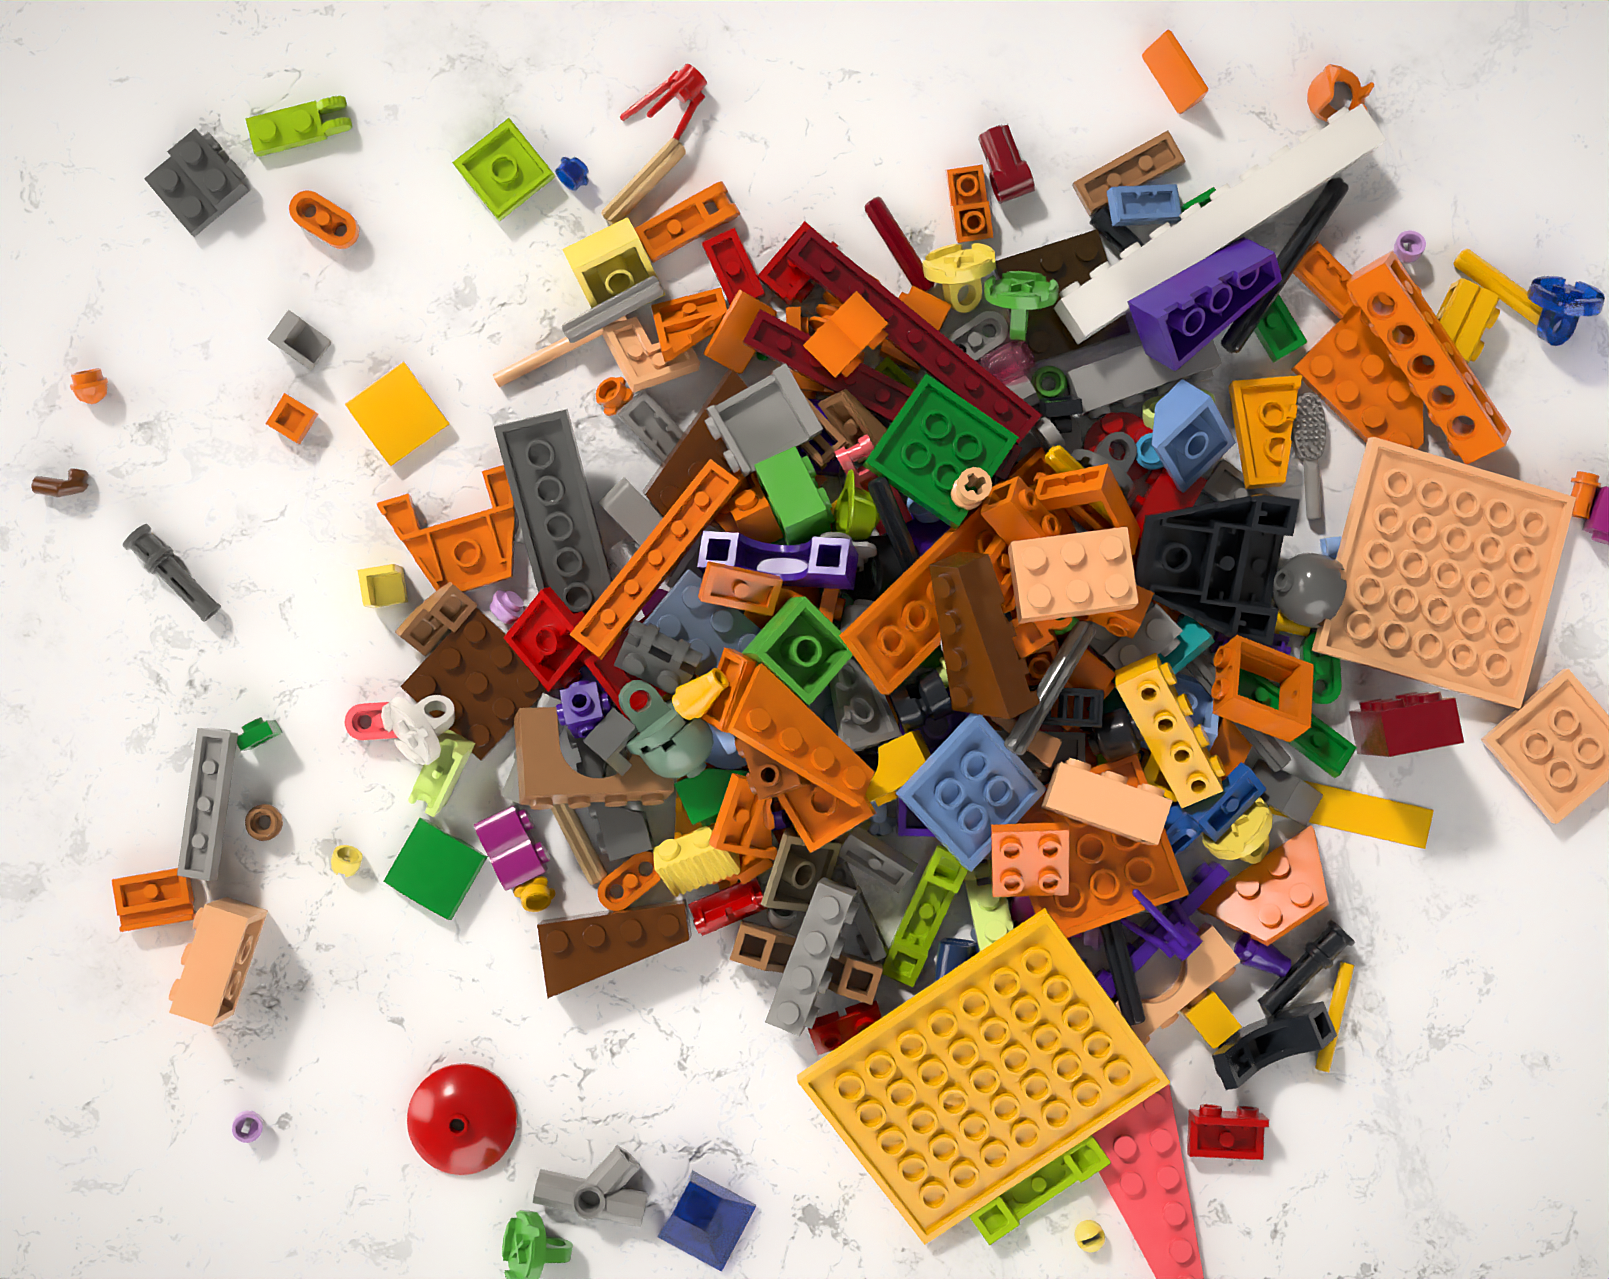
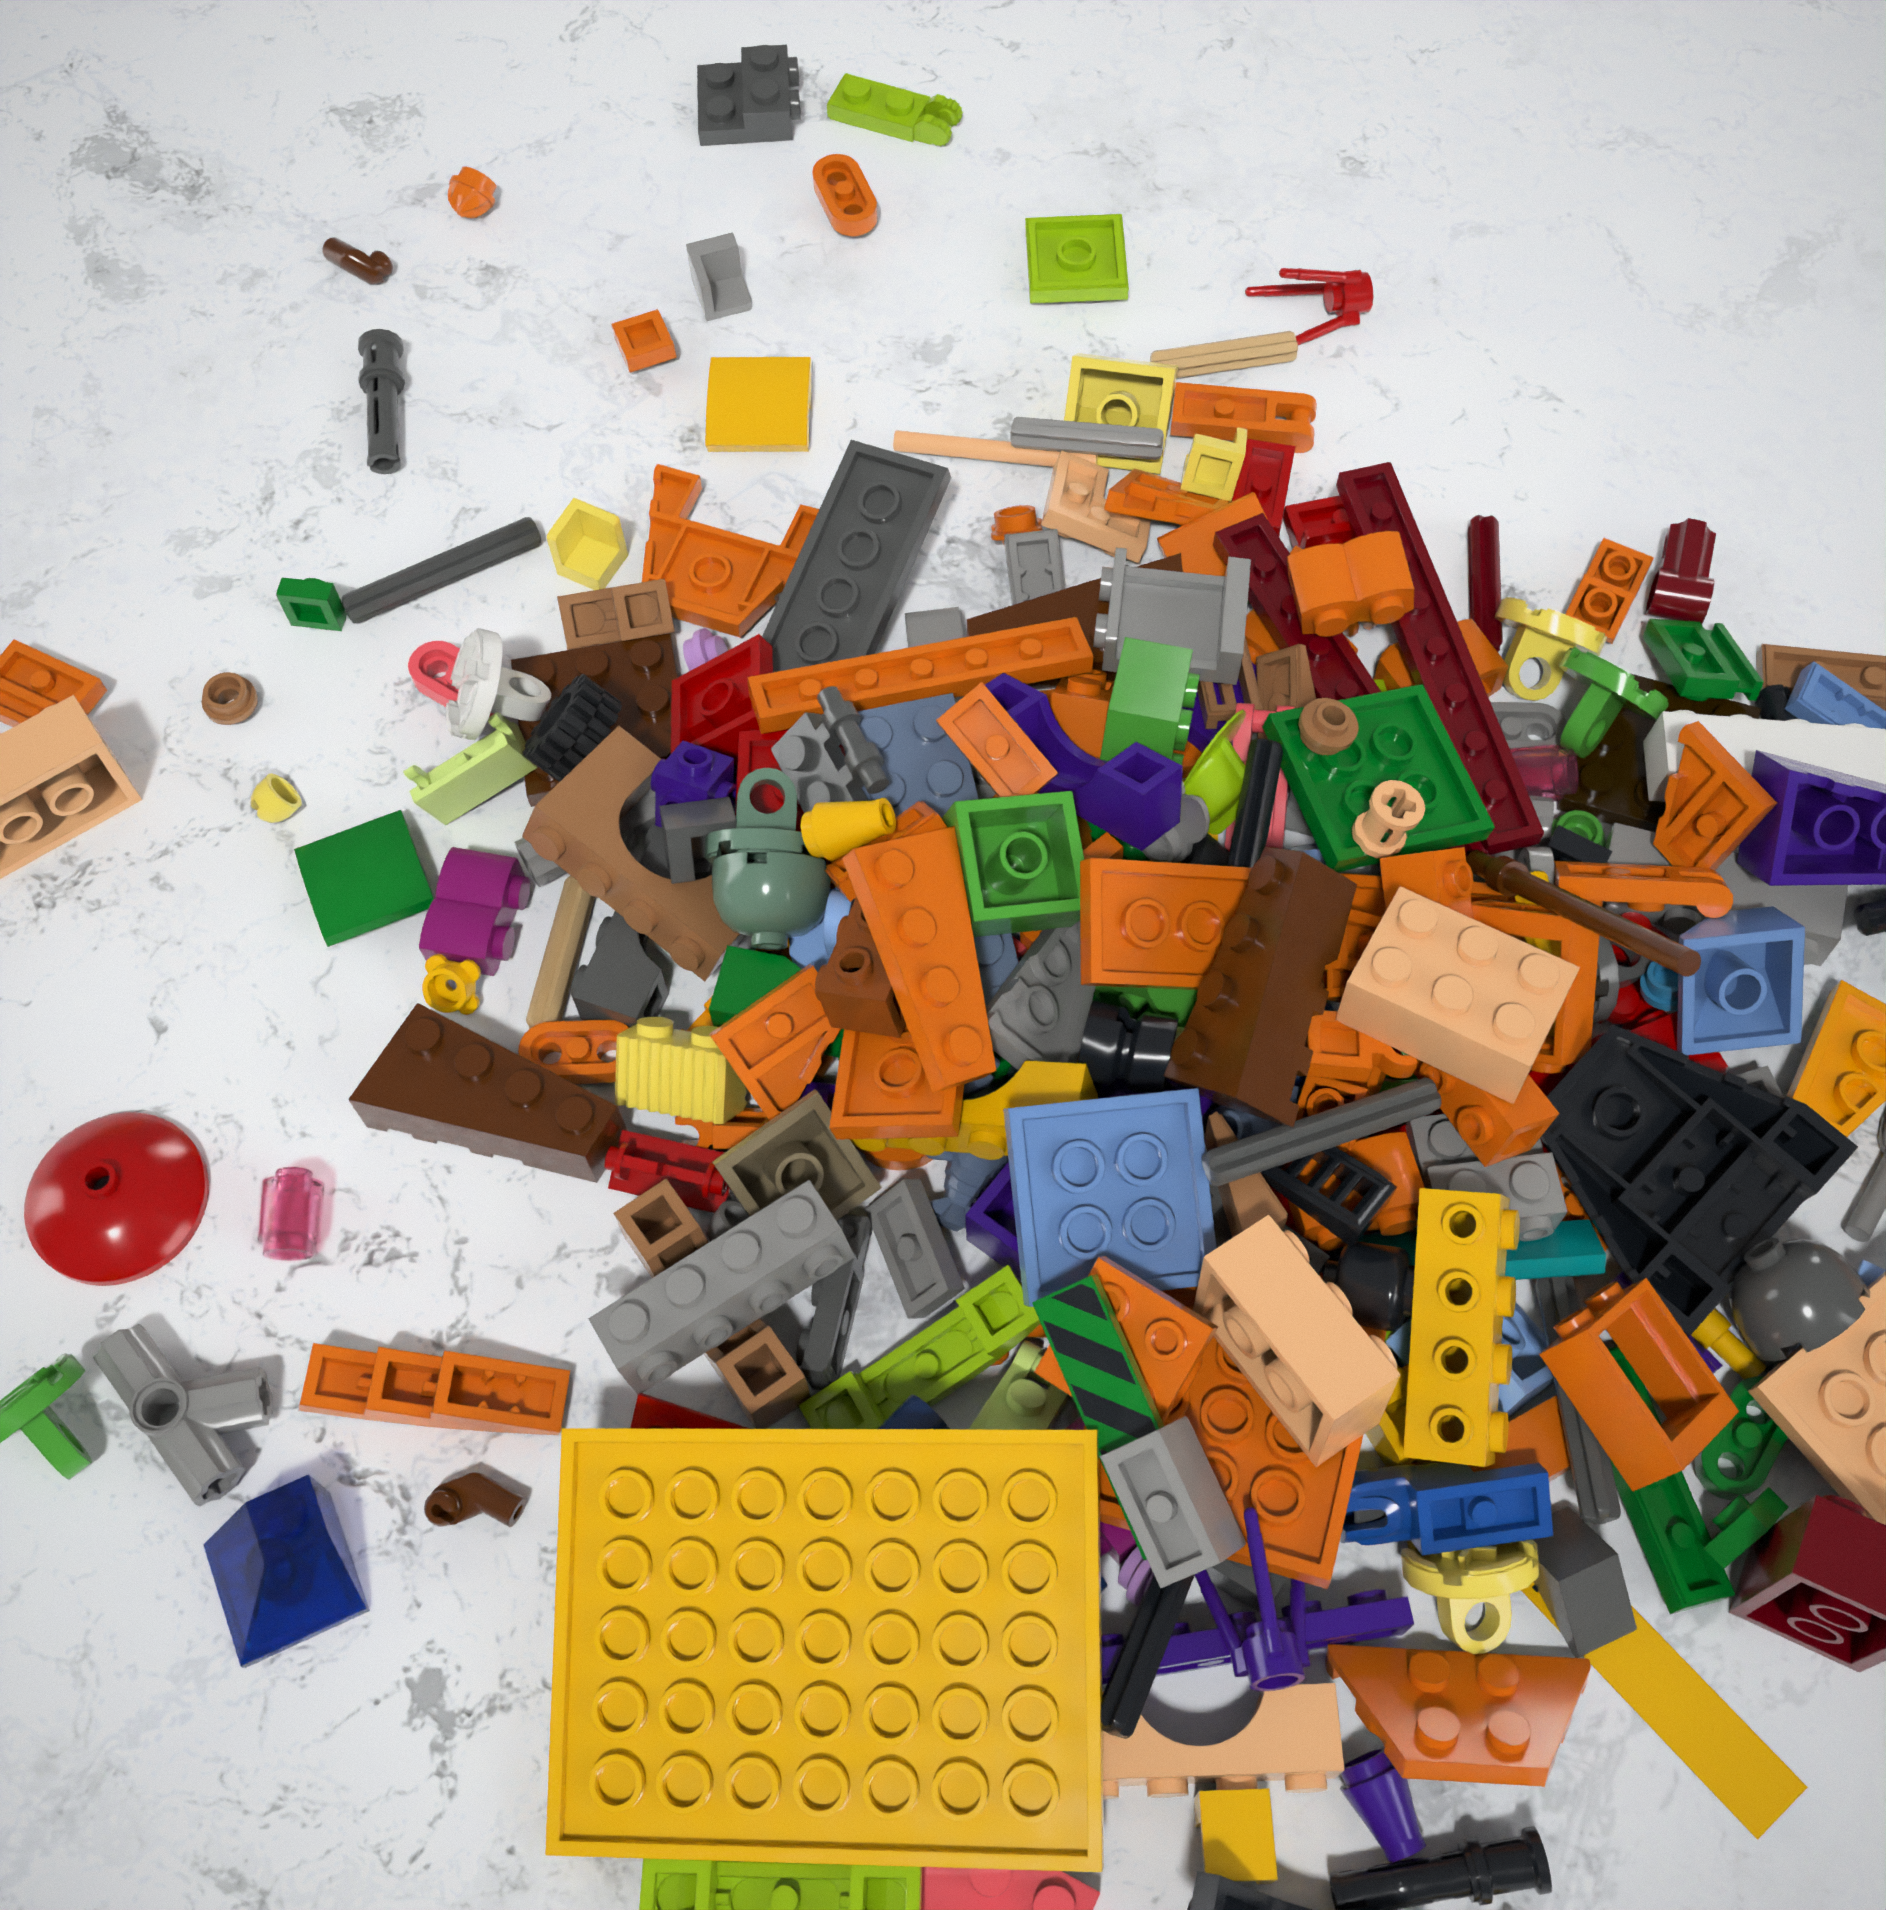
camera: 45 degrees right, 25 degrees down
(207, 804) = (186, 628): light grey fence -> none
(309, 657) = (441, 570): none -> dark grey axle
(488, 720) = (572, 727): none -> black tyre
(561, 1066) = (290, 1214): none -> clear pink brick
(572, 173) = (1149, 301): clear blue plate -> none
(701, 278) = (1214, 465): none -> light yellow panel
(704, 1093) = (435, 1390): none -> orange slope
(762, 1124) = (470, 1497): none -> reddish brown arm
(897, 459) = (1327, 726): none -> medium nougat plate
(1047, 467) = (1514, 879): none -> reddish brown bar
(1048, 892) = (1098, 1367): none -> tile
(1050, 223) = (1702, 660): none -> green plate
(1103, 917) = (1174, 1502): none -> light grey panel
(1110, 414) = (1646, 886): none -> orange plate
(1118, 346) = (1708, 803): none -> orange wing
(1345, 716) = (1743, 1524): none -> green plate

